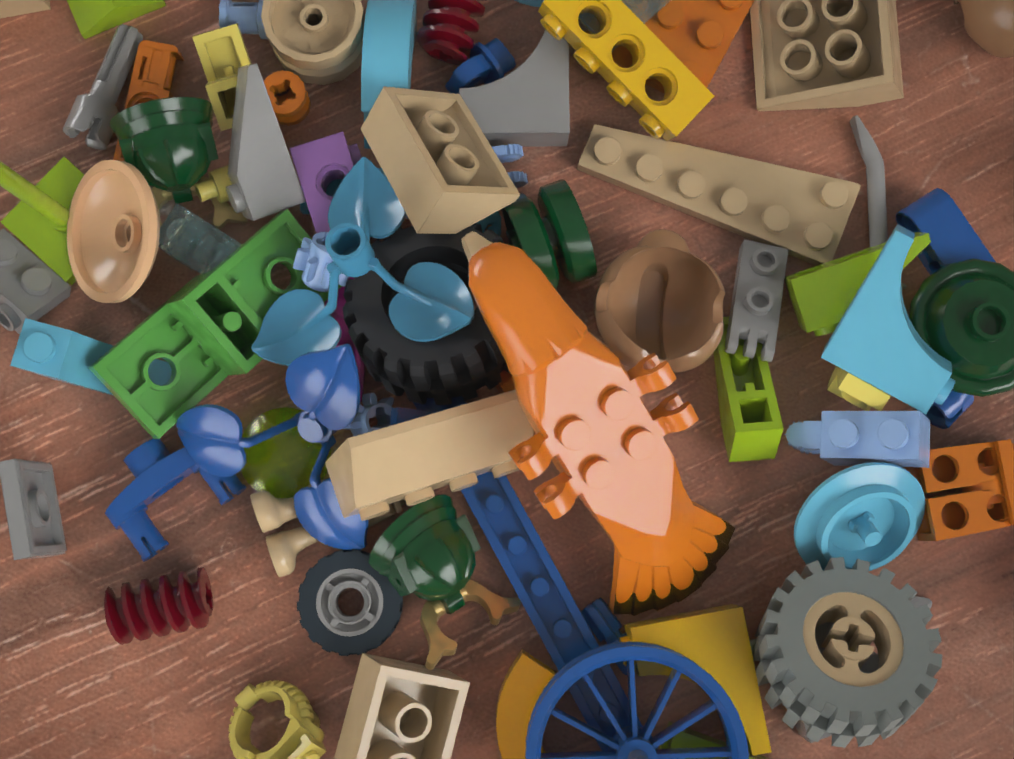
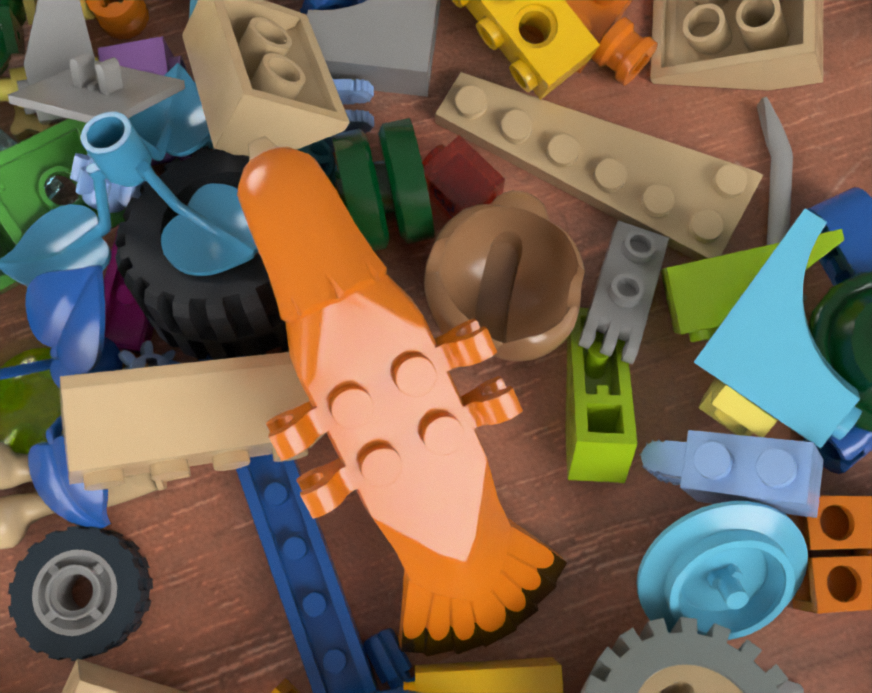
camera: 15 degrees right, 5 degrees down
(313, 196) = (96, 88): none -> light grey piece
(434, 558) = (184, 546): dark green helmet -> none
(611, 222) = (460, 177): none -> clear red brick
(733, 89) = (624, 51): none -> orange wheel

